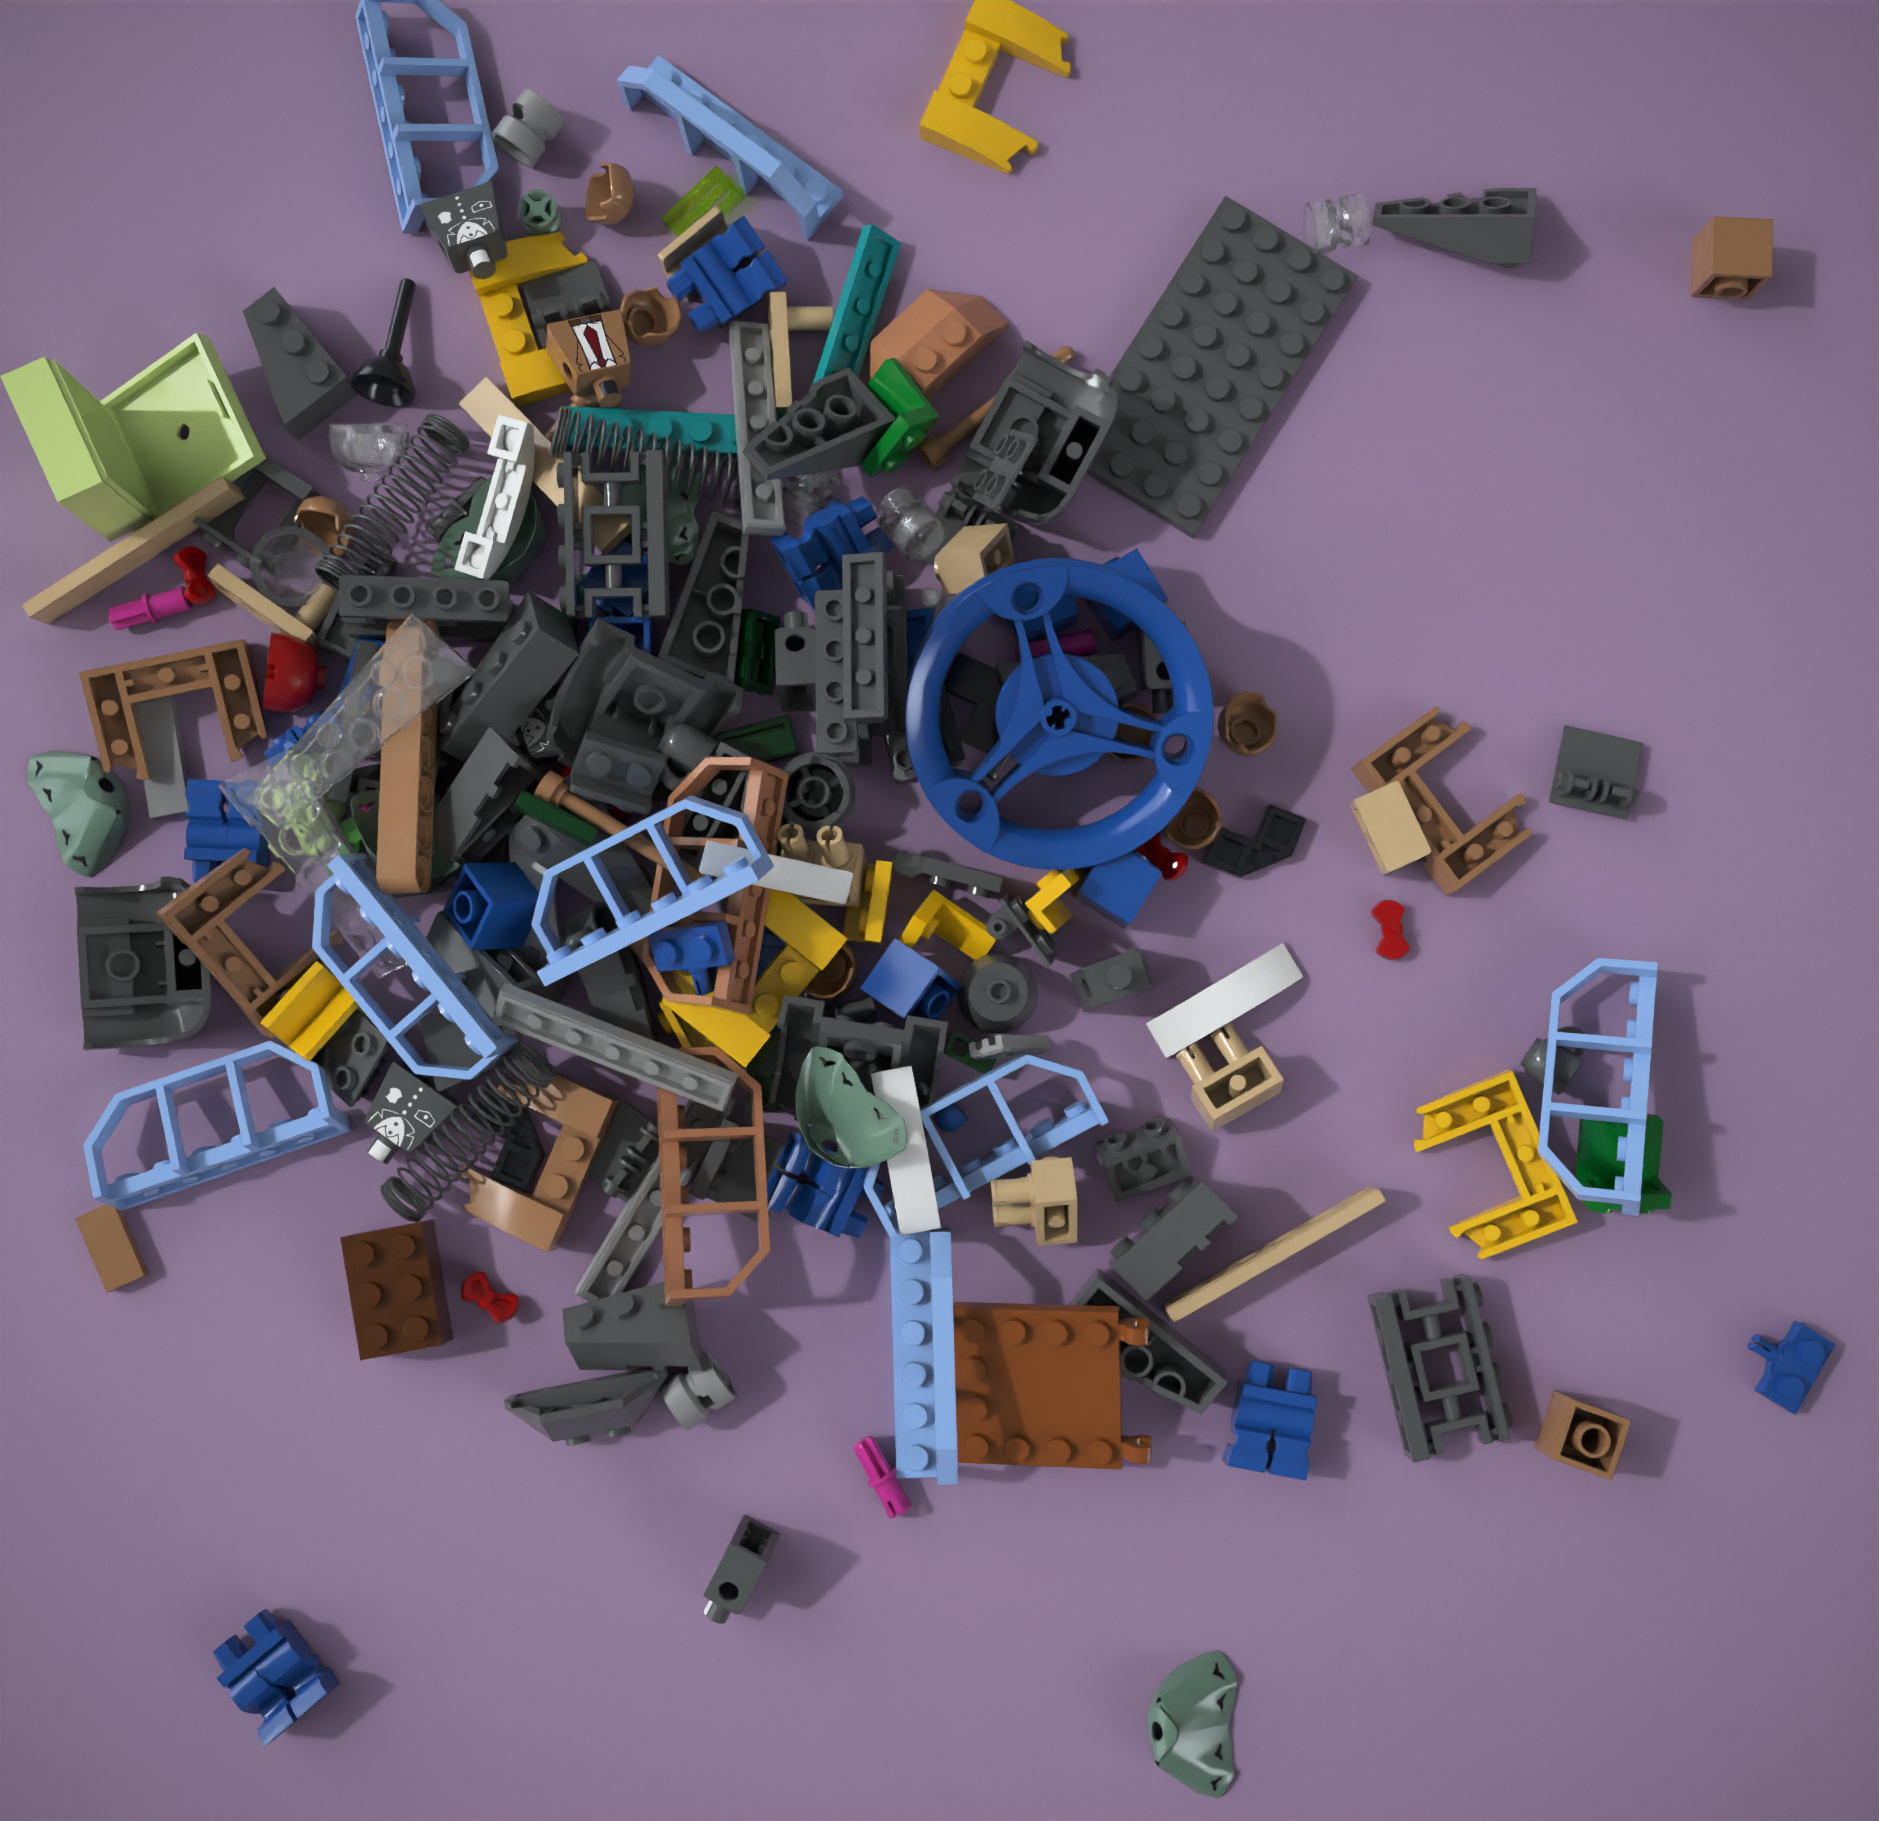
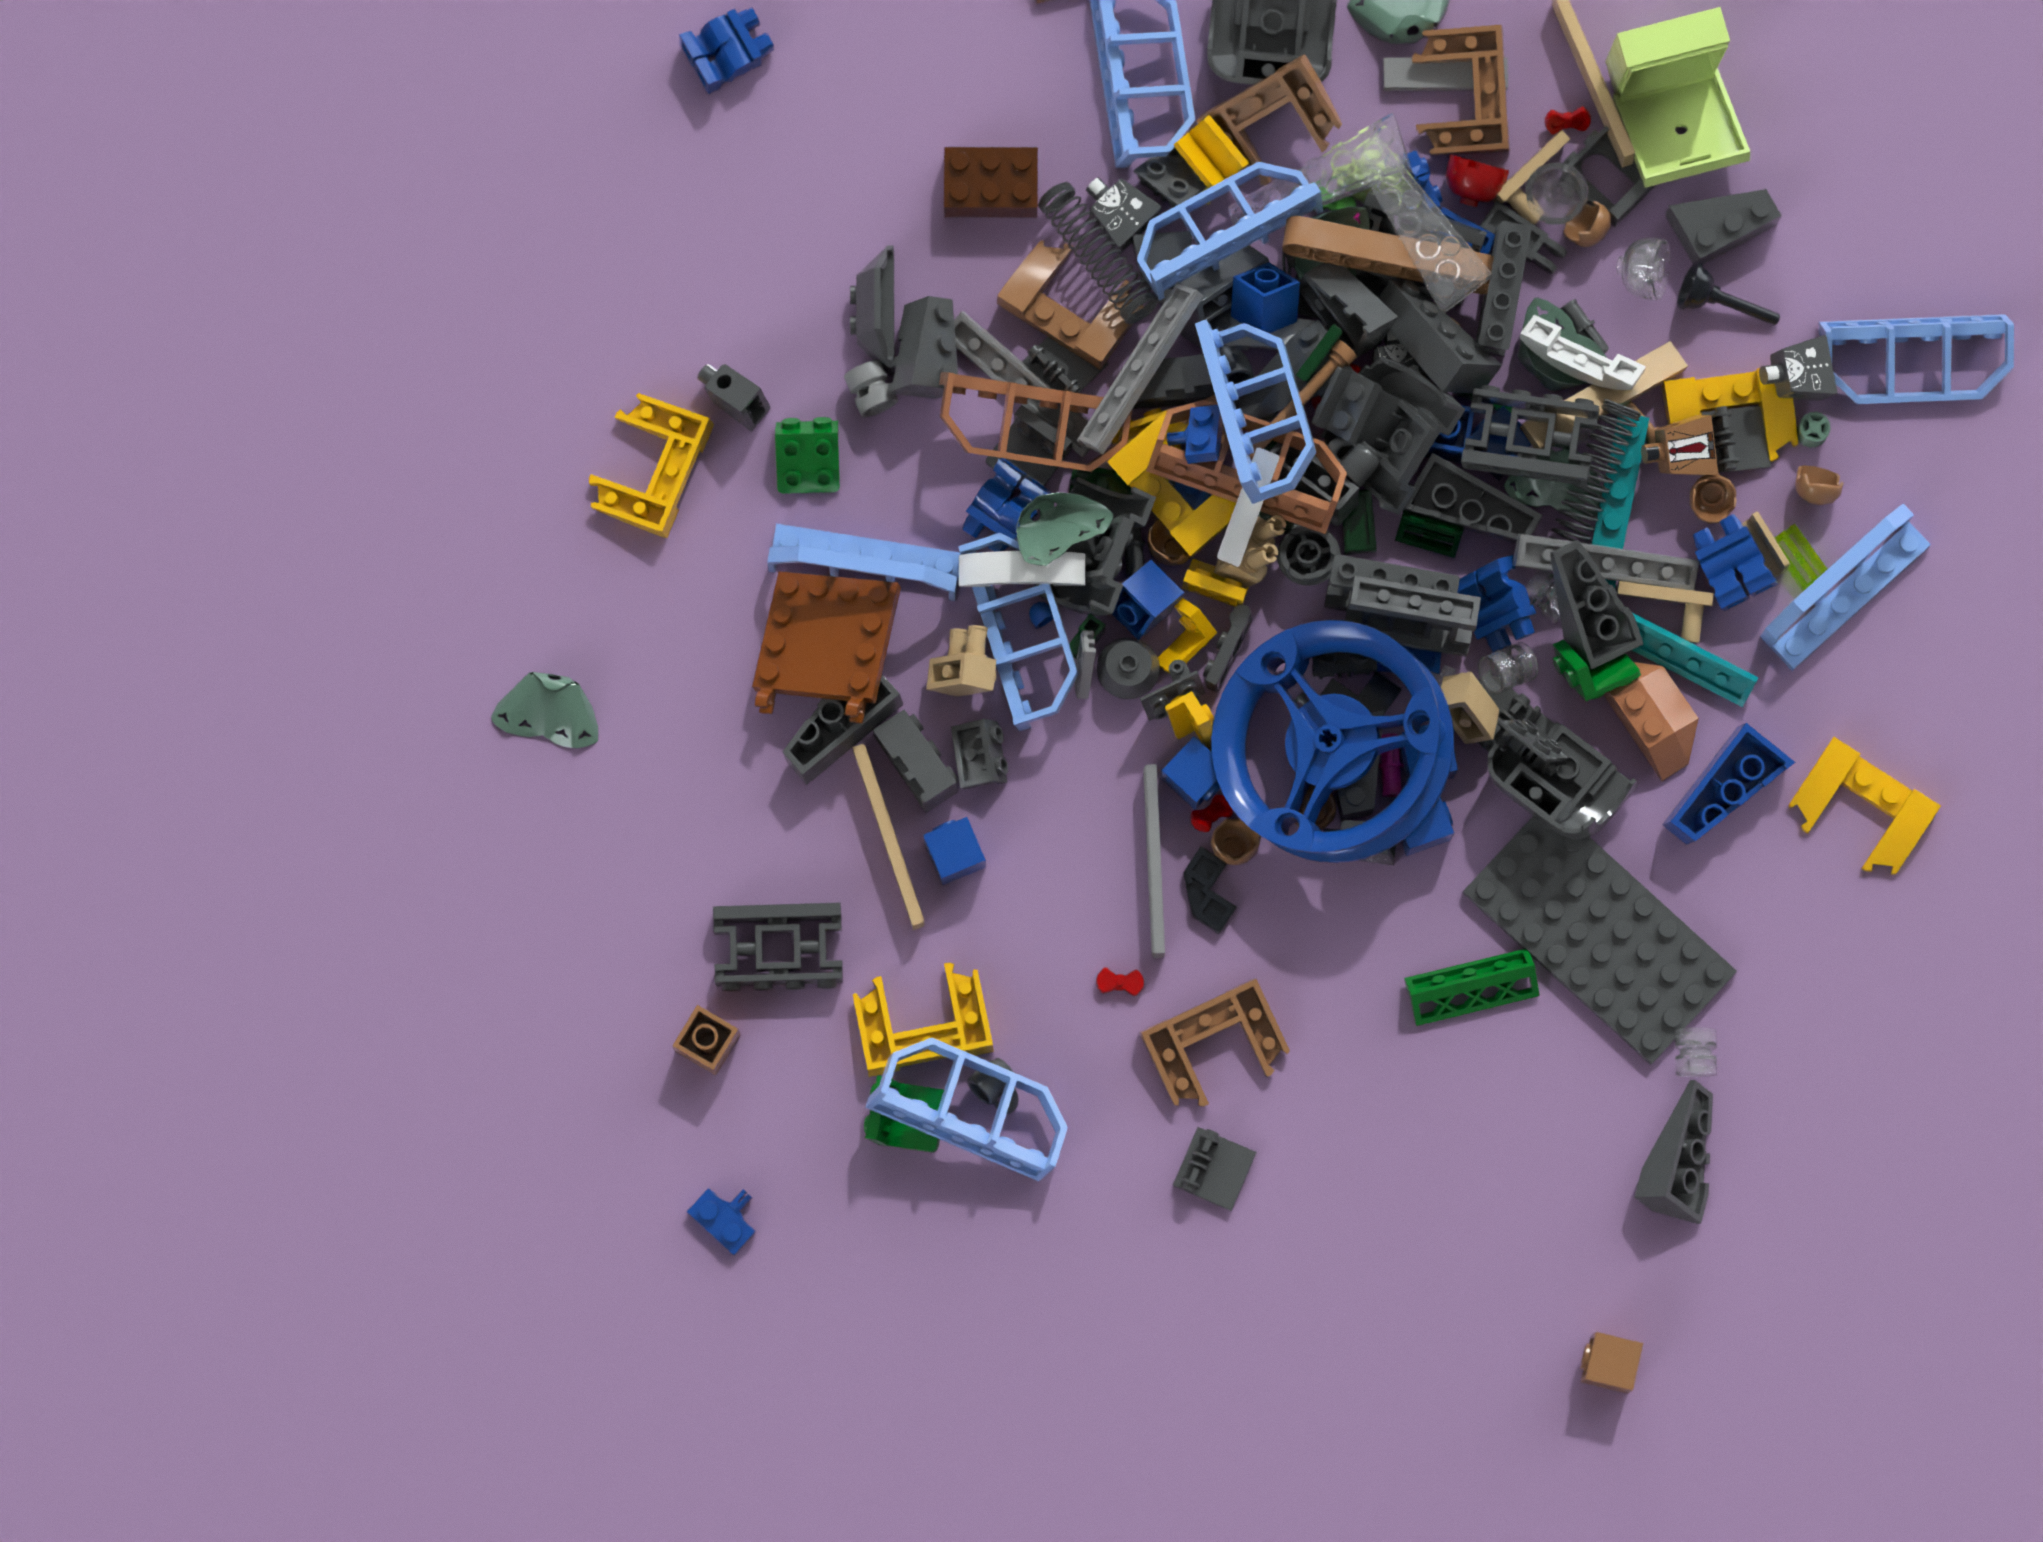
camera: 100 degrees right, 5 degrees down
(149, 608) = (1547, 82): dark pink axle -> none
(217, 835) = (1360, 105): blue hips -> none
(452, 443) = (1651, 317): dark grey piece -> none
(500, 1306) = (962, 255): red piece -> none
(522, 1149) = (1076, 291): black tile -> none
(527, 129) = (1883, 431): light grey wheel -> none
(796, 663) = (1412, 552): dark grey torso -> none
(799, 1456) = (807, 455): none -> green bracket
(882, 1477) = (779, 513): dark pink axle -> none
(901, 1638) = (685, 437): none -> yellow wedge
(936, 449) = (1568, 703): medium nougat piece -> none
(1003, 241) = (1730, 779): none -> blue wedge
(1112, 979) = (1122, 759): dark grey torso -> none
(1224, 1000) = (1090, 842): white slope -> none
(1236, 915) = (1154, 861): none -> light grey tile
(1236, 1087) = (1021, 832): tan brick -> none
(1247, 724) = (1302, 899): medium nougat hair -> none
(1268, 1408) = (773, 807): blue hips -> none
(1276, 1167) = (954, 850): none -> blue head
(1304, 504) = (1472, 980): none -> green fence
(1390, 827) = (1199, 991): tan panel -> none

